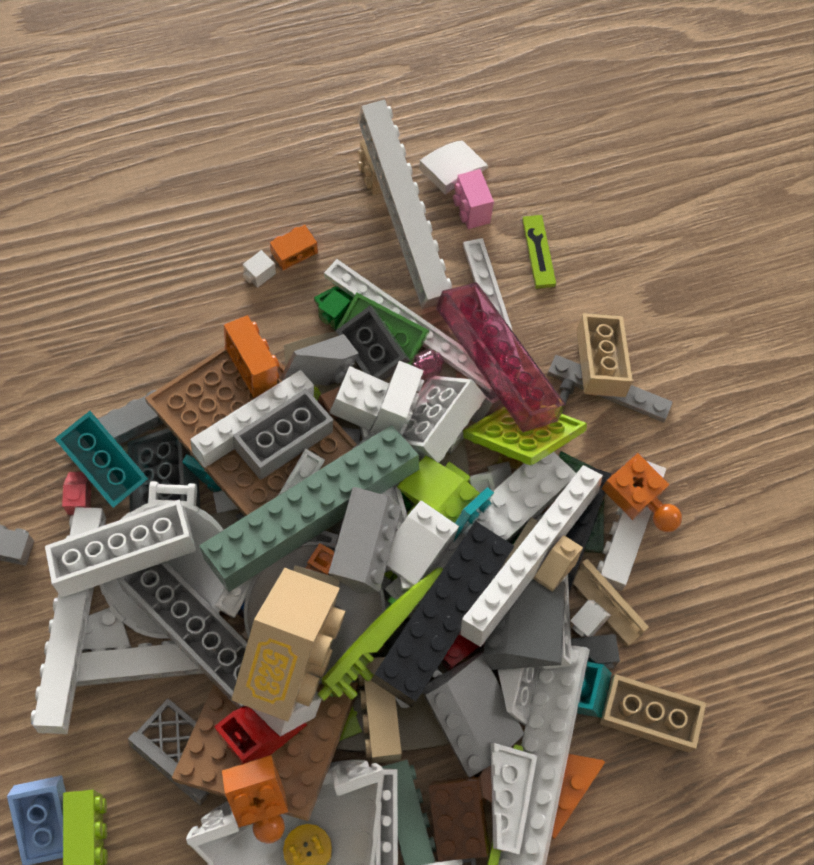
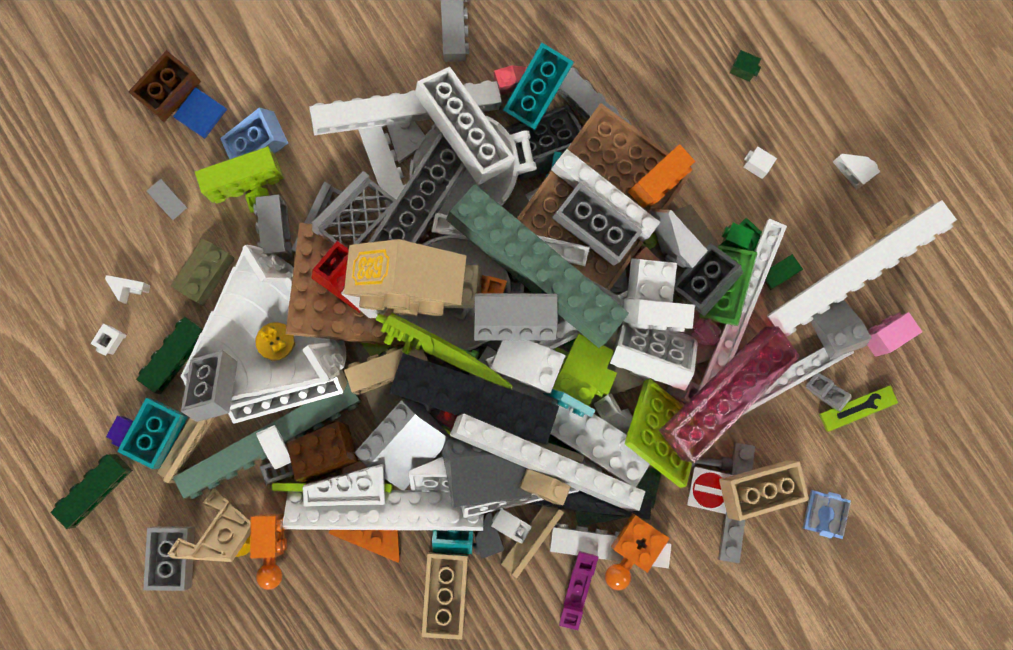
camera: 75 degrees right, 15 degrees up
(119, 834) = (251, 196): none -> lime slope
(149, 253) = (746, 66): none -> dark green brick
(163, 712) = (343, 201): none -> light grey fence
(163, 815) = (273, 226): none -> light grey piece
(257, 798) = (289, 288): orange brick -> none
(293, 247) = (791, 186): orange brick -> none
(295, 184) = (856, 168): none -> white slope
(380, 277) = (782, 271): none -> green tile
(448, 162) = (926, 305): white slope -> none
(459, 241) = (840, 330): none -> light grey slope
(516, 273) = (828, 392): none -> light grey slope
(593, 410) = (706, 490): none -> piece
(639, 307) = (826, 514): none -> piece
(670, 569) = (577, 590): none -> magenta slope

